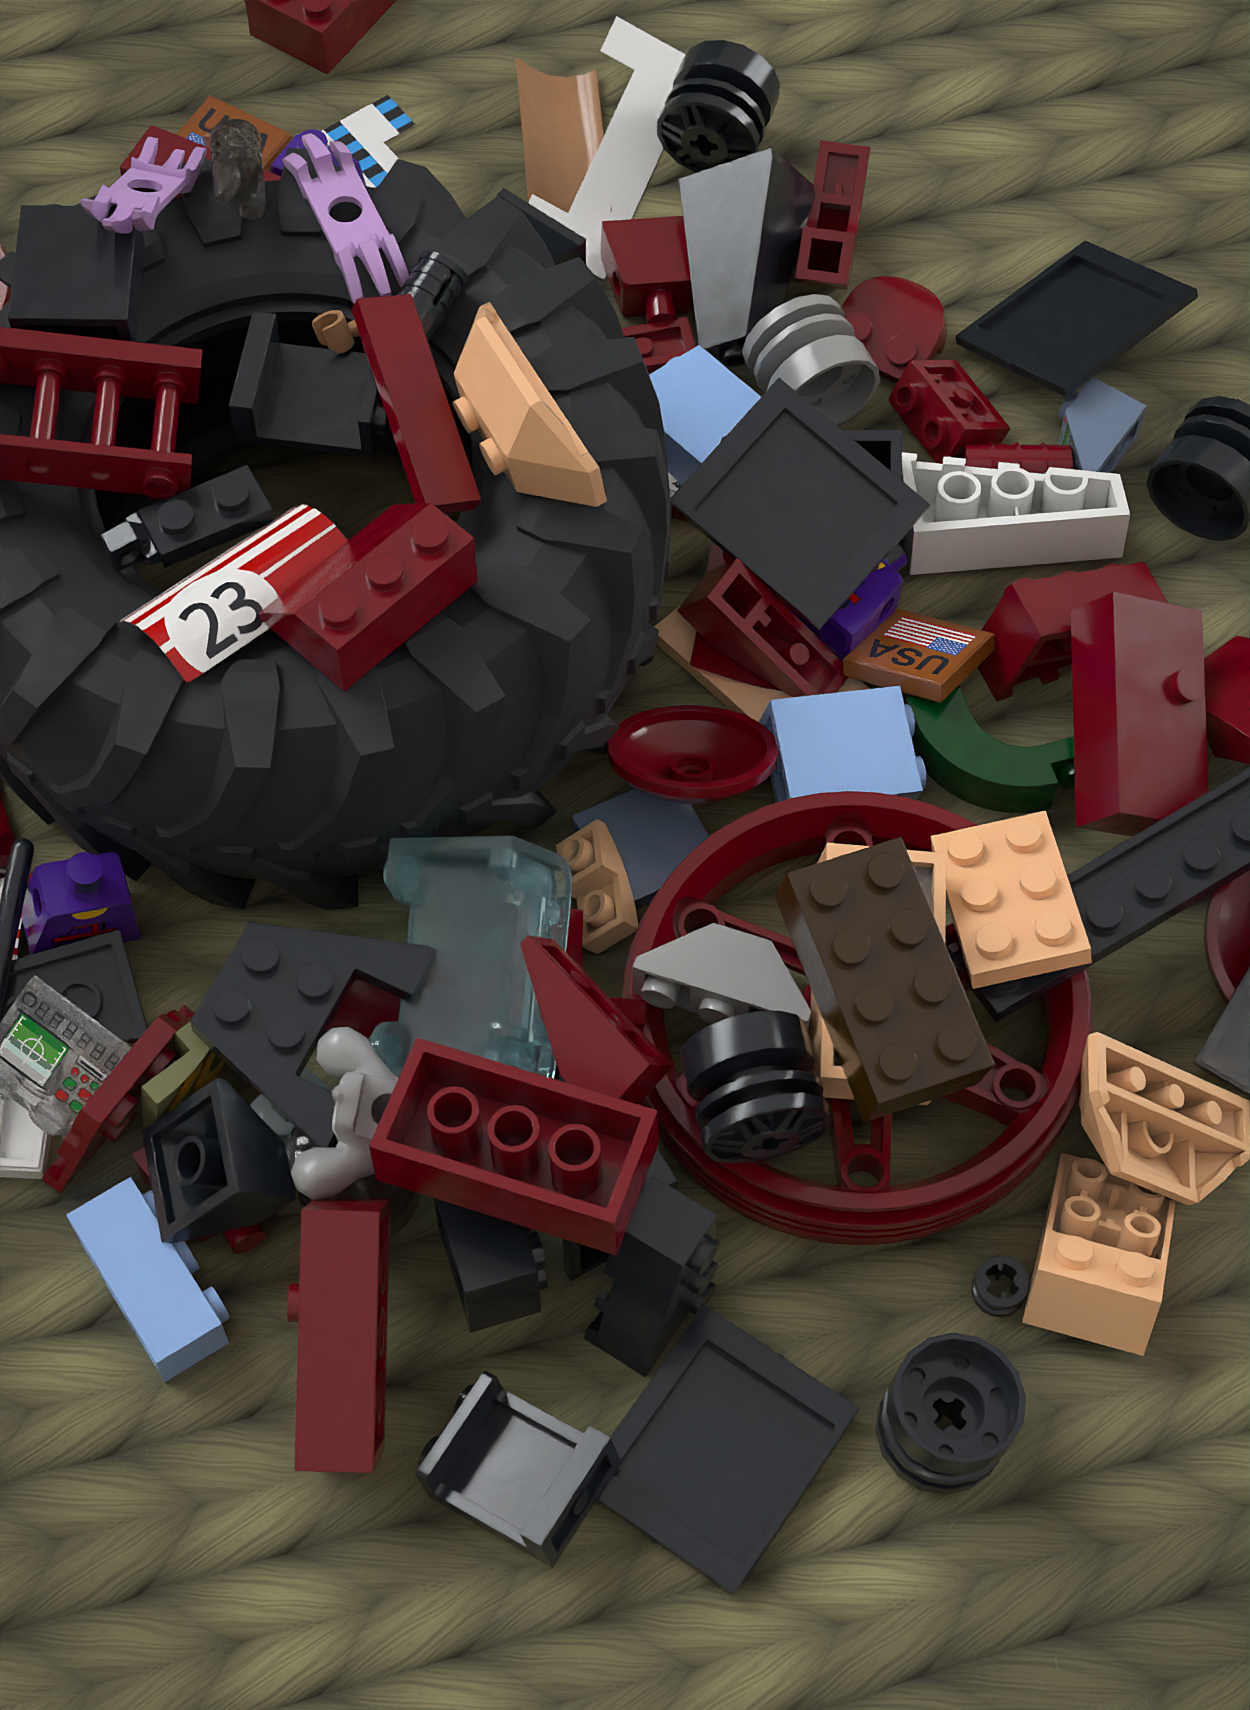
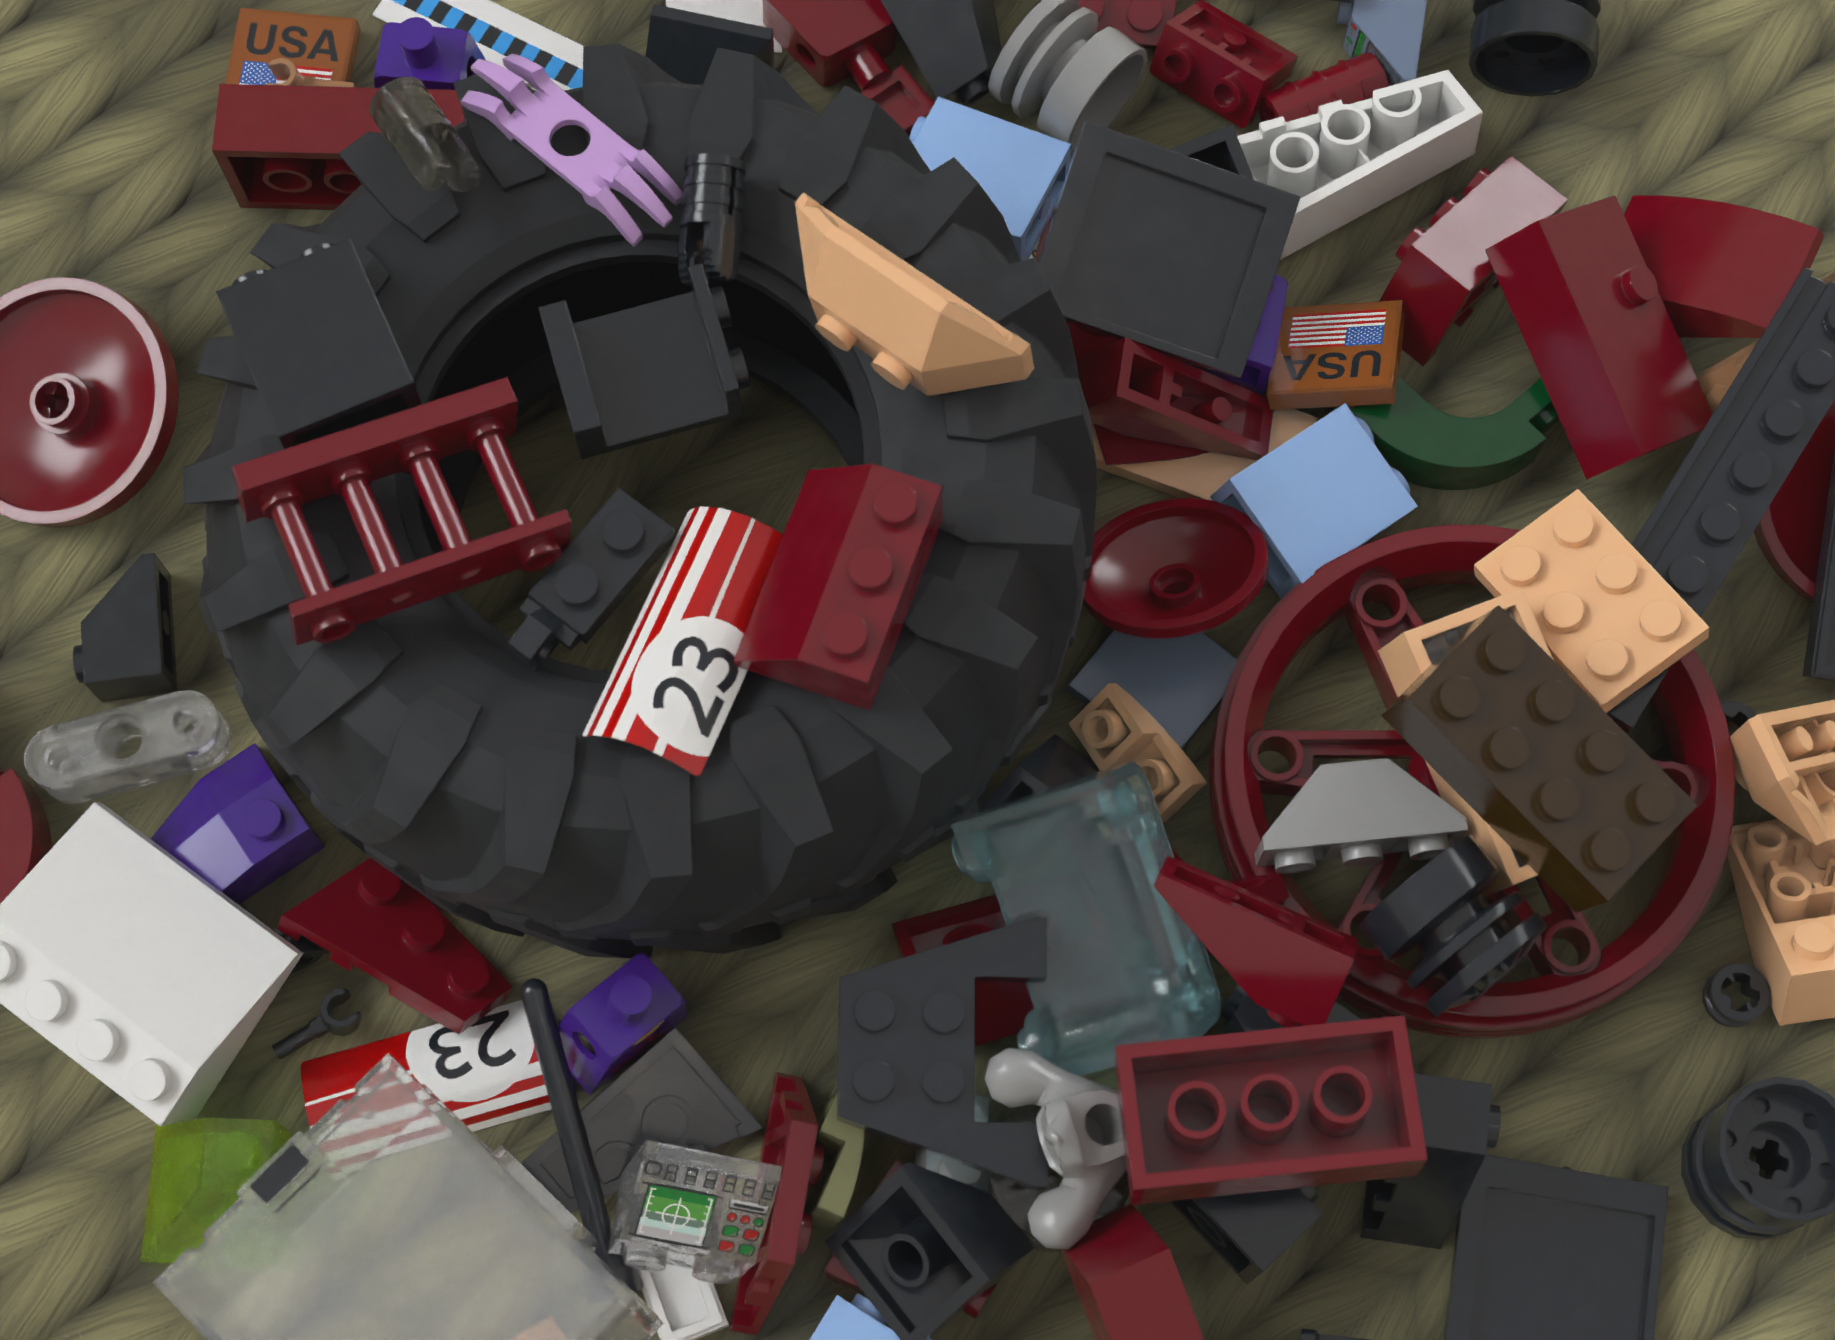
camera: 25 degrees left, 10 degrees up
(143, 207) = (336, 189): lavender piece -> none
(334, 331) = (632, 284): medium nougat hand -> none
(415, 403) = (776, 343): dark red tile -> none

